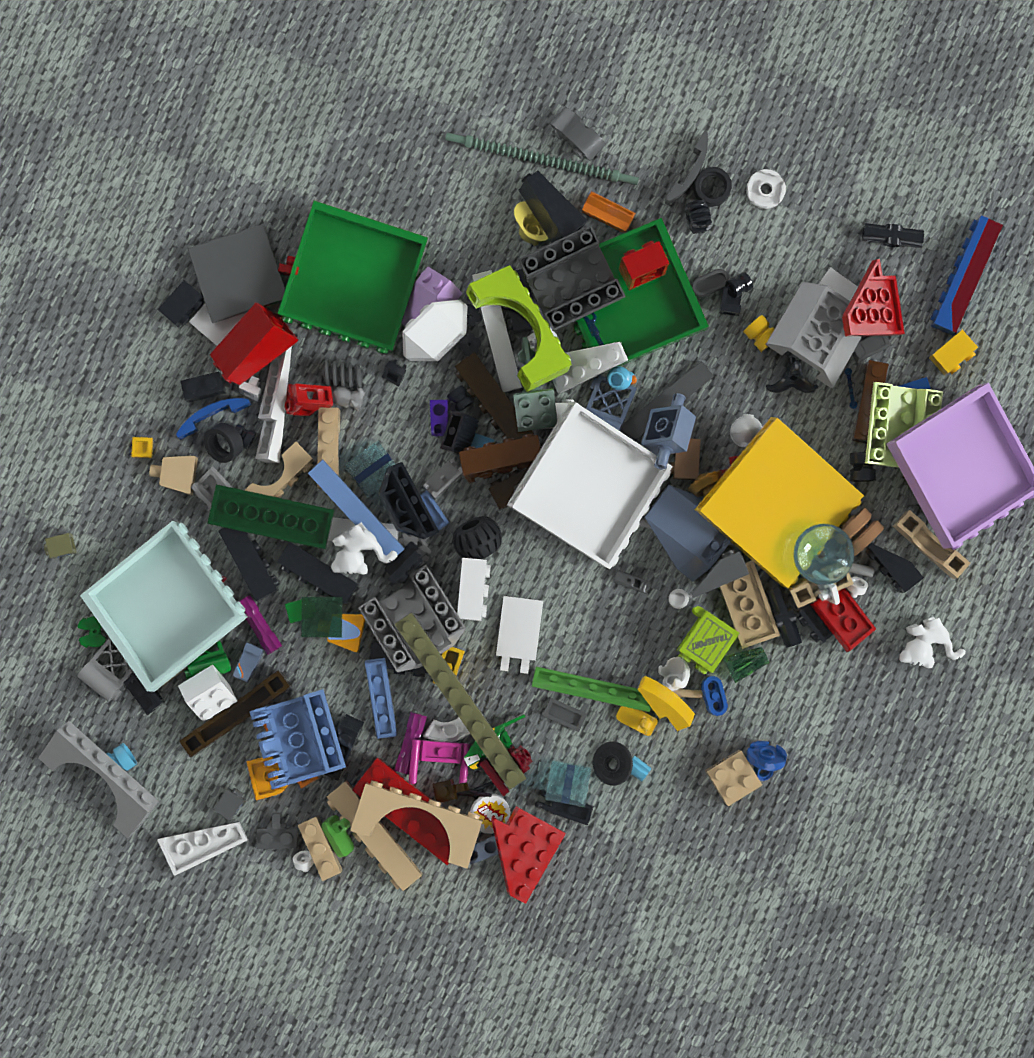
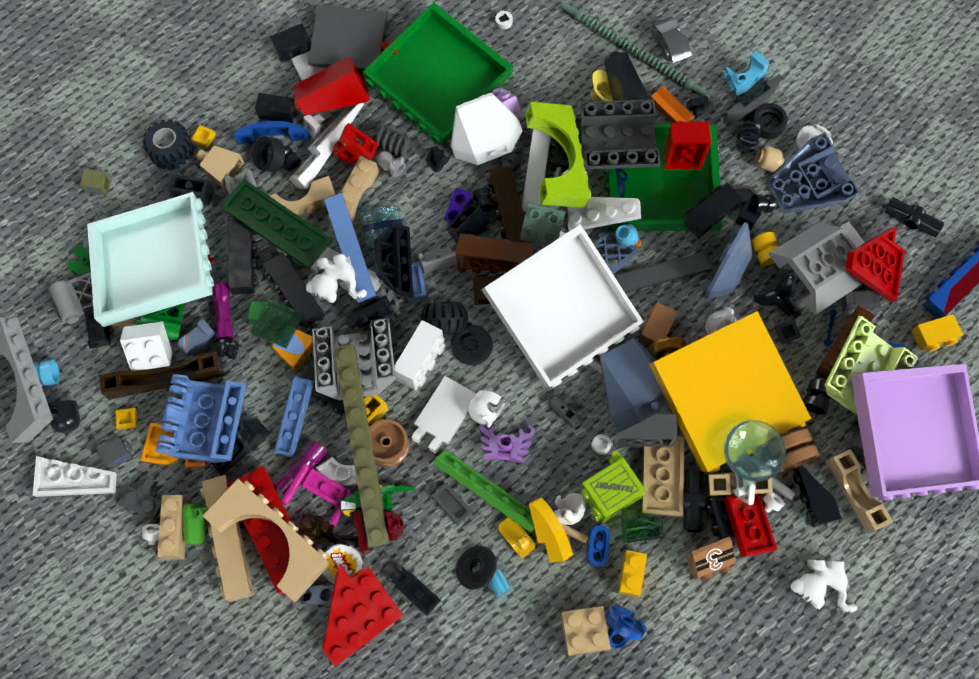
camera: 25 degrees right, 15 degrees down
(113, 474) = (168, 144): none -> black wheel
(163, 513) = (185, 184): none -> black brick
(166, 791) = (68, 416): none -> black helmet
(220, 767) = (126, 418): none -> yellow tile
(283, 659) = (228, 348): none -> black wheel
(391, 180) = (504, 19): none -> white tile
(492, 685) = (396, 450): none -> medium nougat wheel
(528, 554) = (474, 356): none -> black wheel
(556, 613) = (481, 410): none -> white helmet
(568, 783) = (426, 568): clear light blue slope -> none
(590, 641) = (505, 446): none -> medium lavender animal
(633, 198) = (698, 105): none -> black tile
(668, 430) = (653, 290): sand blue brick -> none
(679, 136) = (757, 71): none -> medium azure tile
(693, 319) = (712, 210): none -> black brick
(728, 230) = (769, 158): none -> tan head
(735, 369) = (734, 262): none -> sand blue wedge
(755, 709) = (632, 574): none -> yellow brick
(779, 236) = (812, 178): none -> sand blue wedge
(811, 413) = (787, 331): none -> black brick
(820, 665) = (711, 558): none -> medium nougat slope

